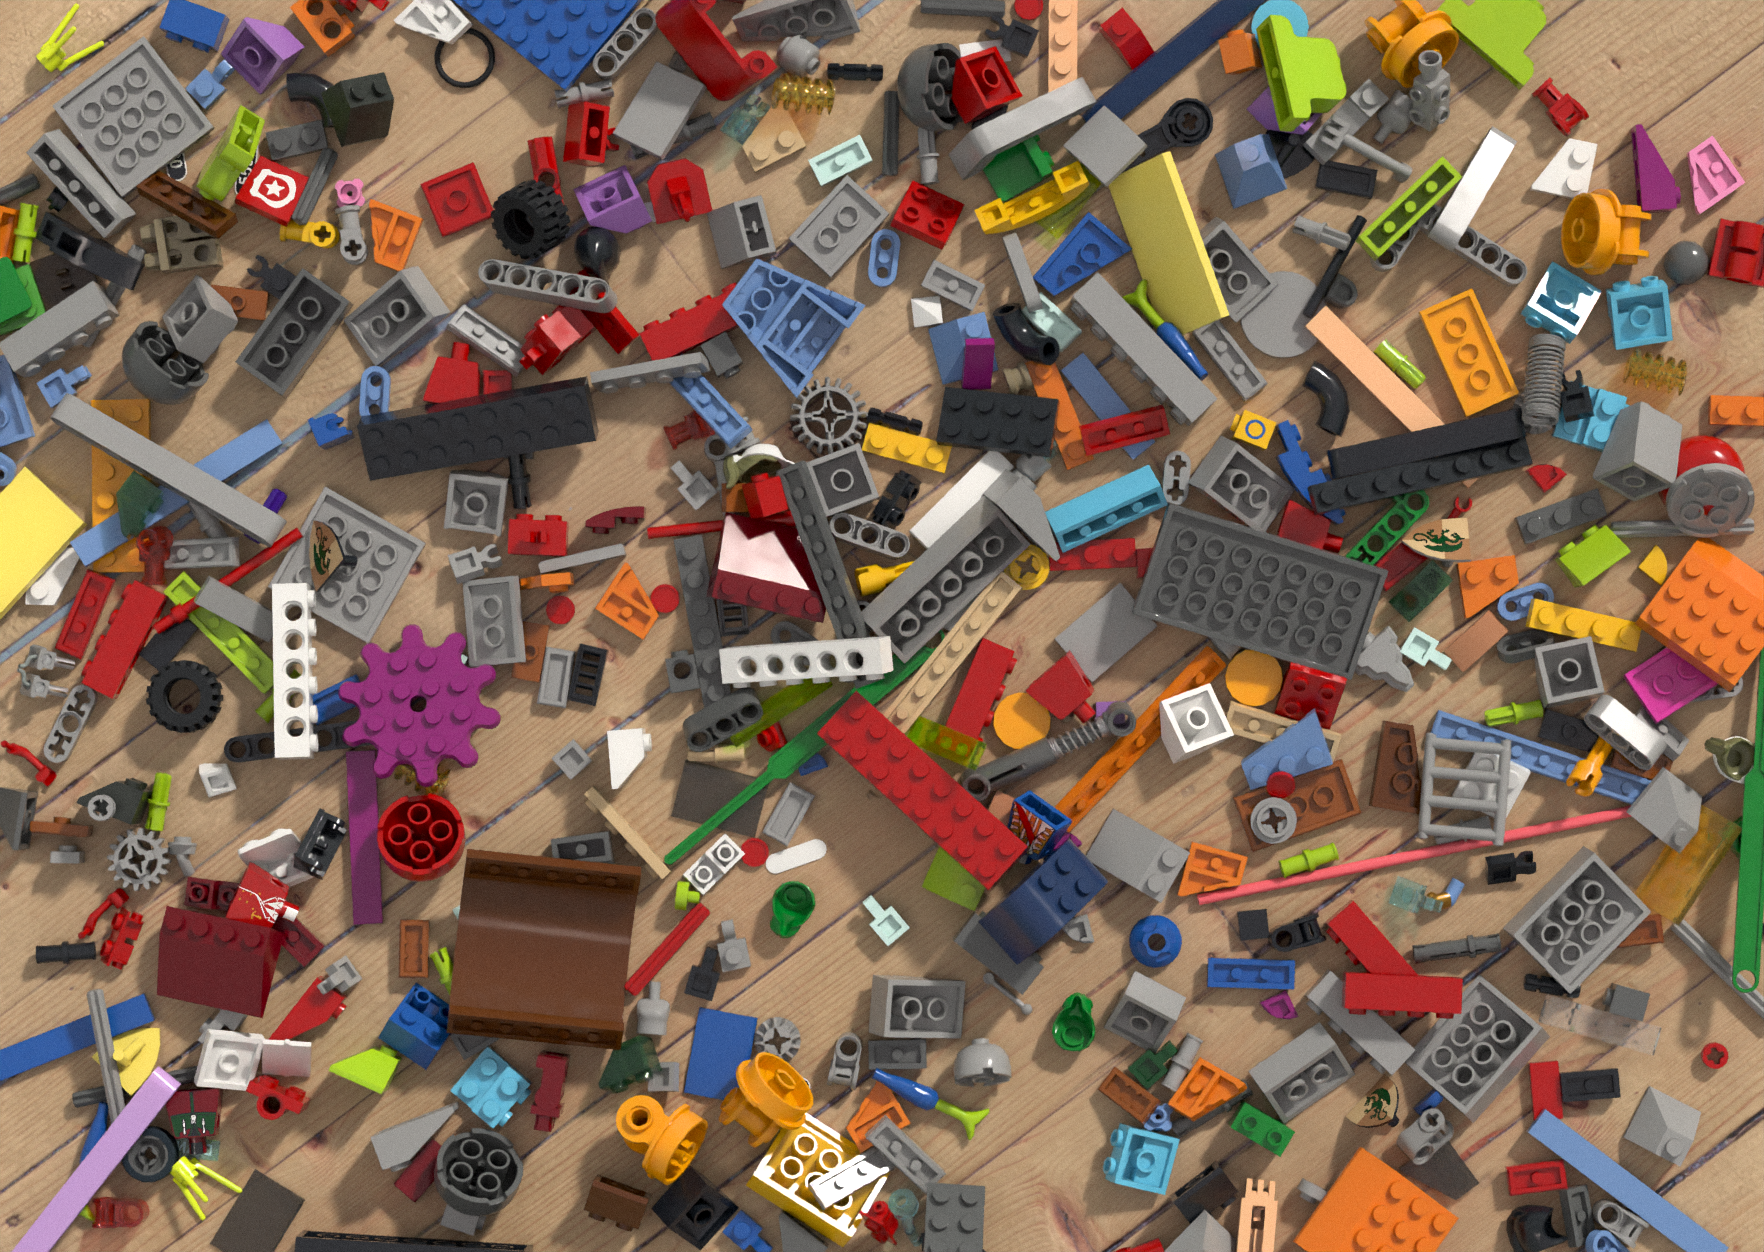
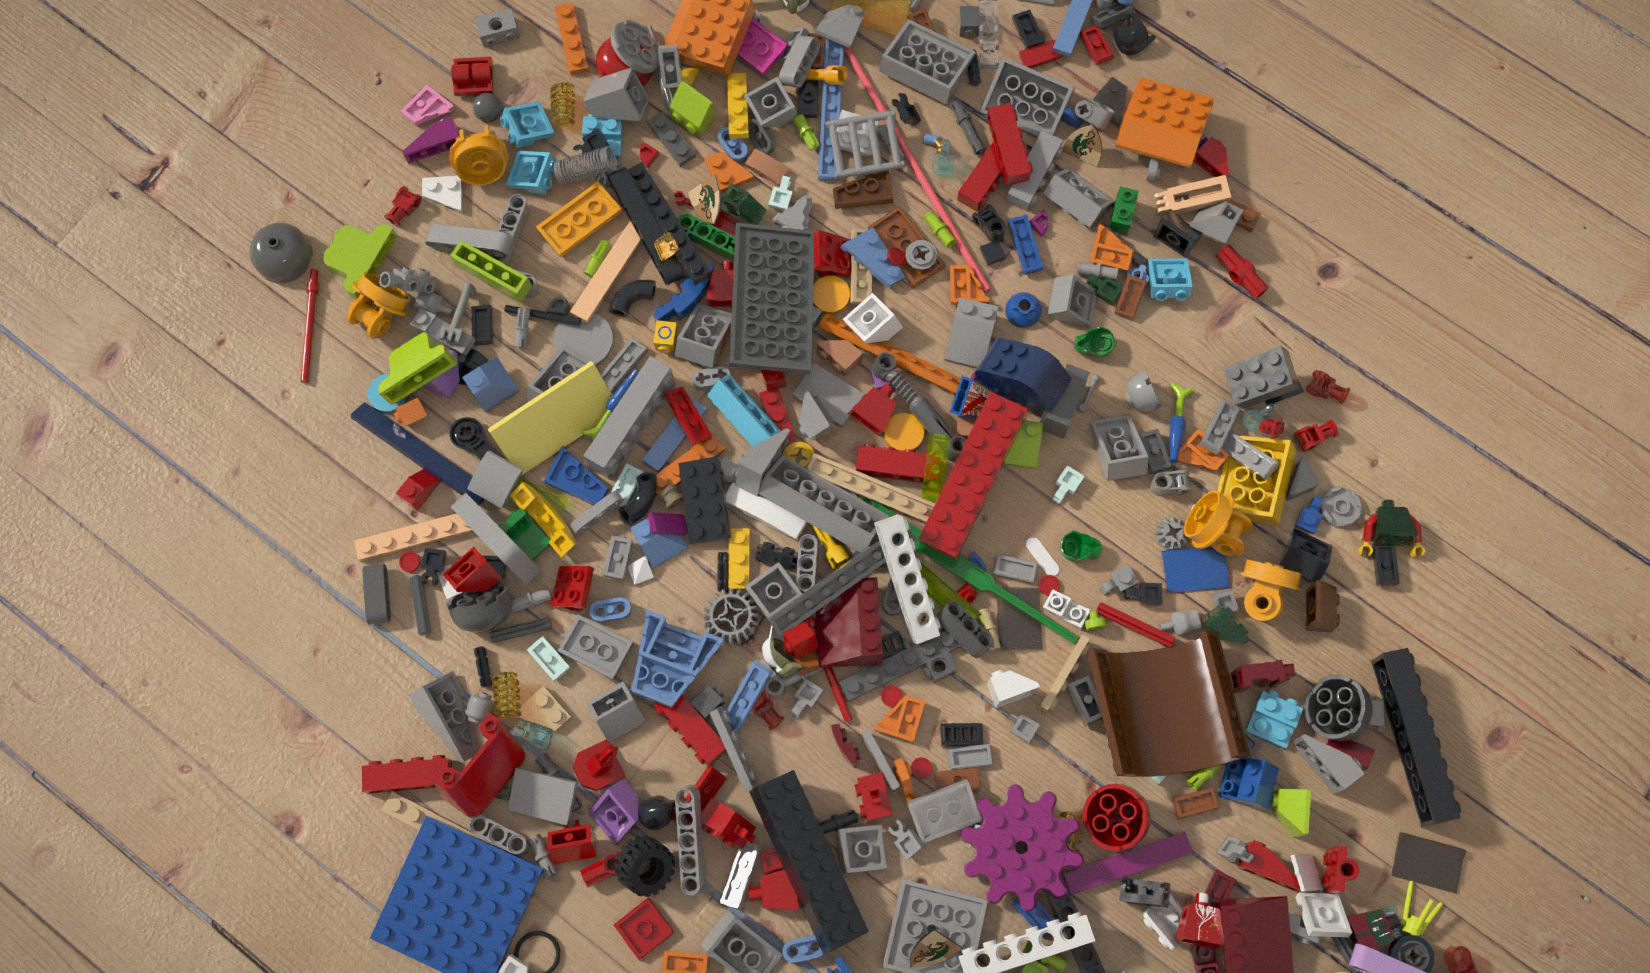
camera: 105 degrees left, 15 degrees down
(1069, 603) = (815, 418): none -> light grey slope
(1158, 666) = (840, 354): none -> nougat slope
(1377, 462) = (666, 246): none -> clear yellow tile
(1663, 541) = (670, 65): none -> light grey brick

